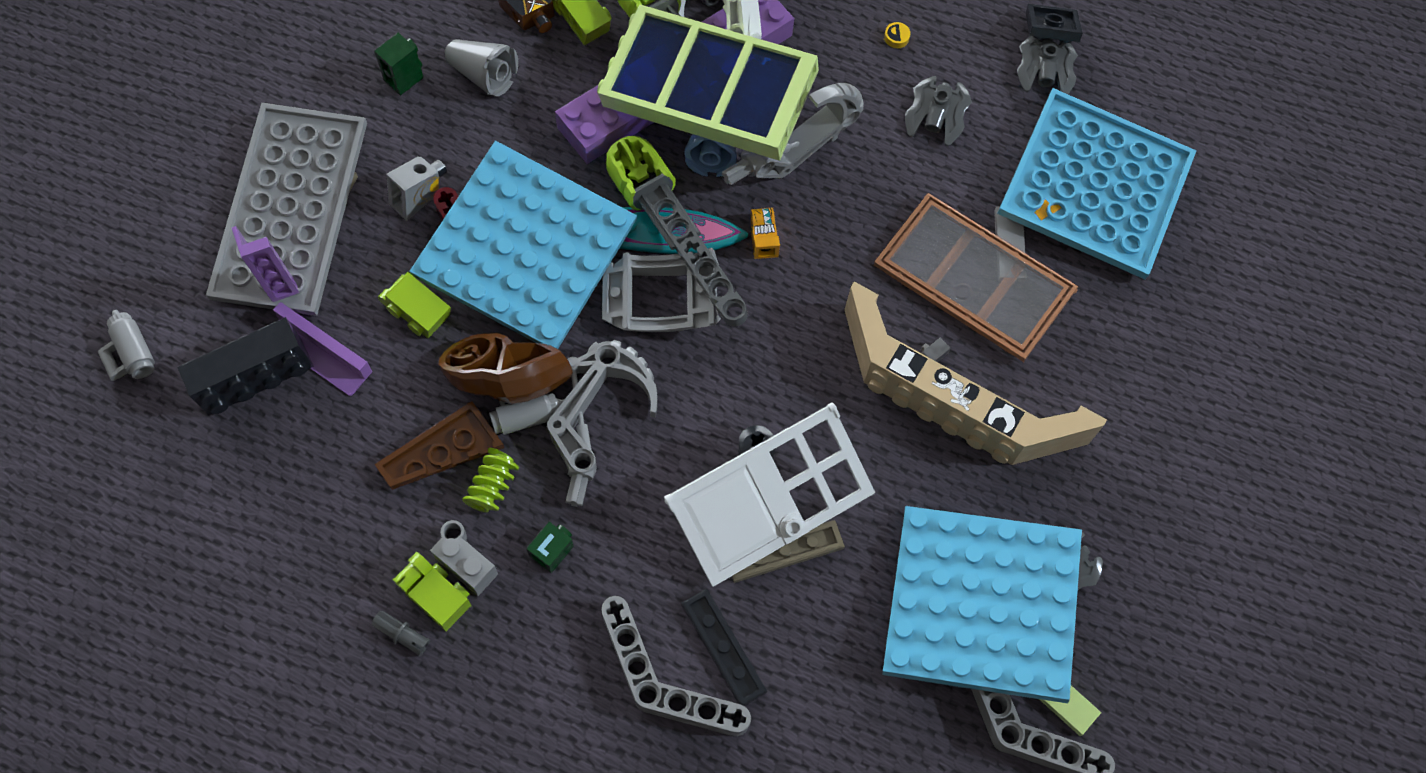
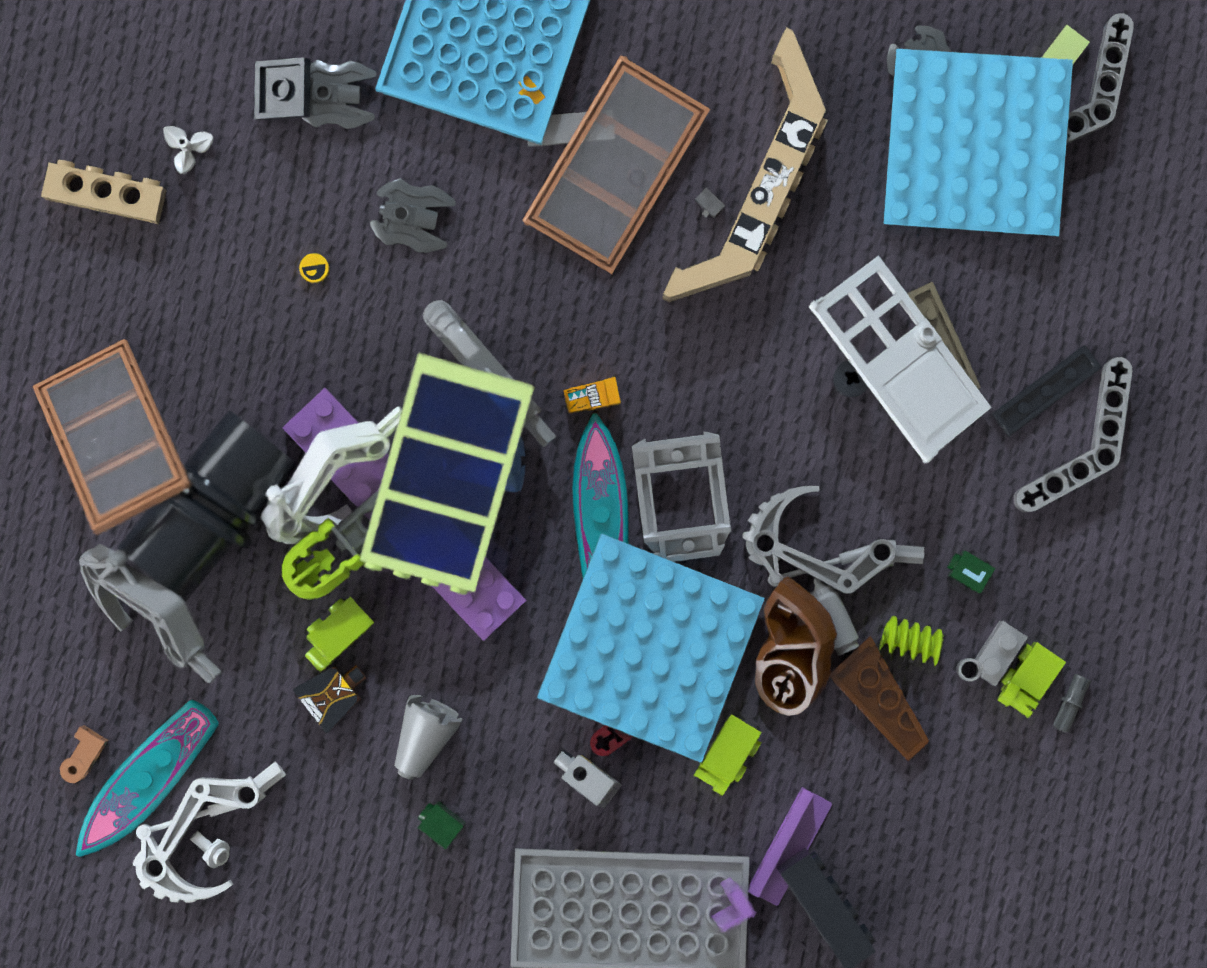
camera: 90 degrees left, 20 degrees up
(658, 194) = (575, 514): dark grey piece -> none

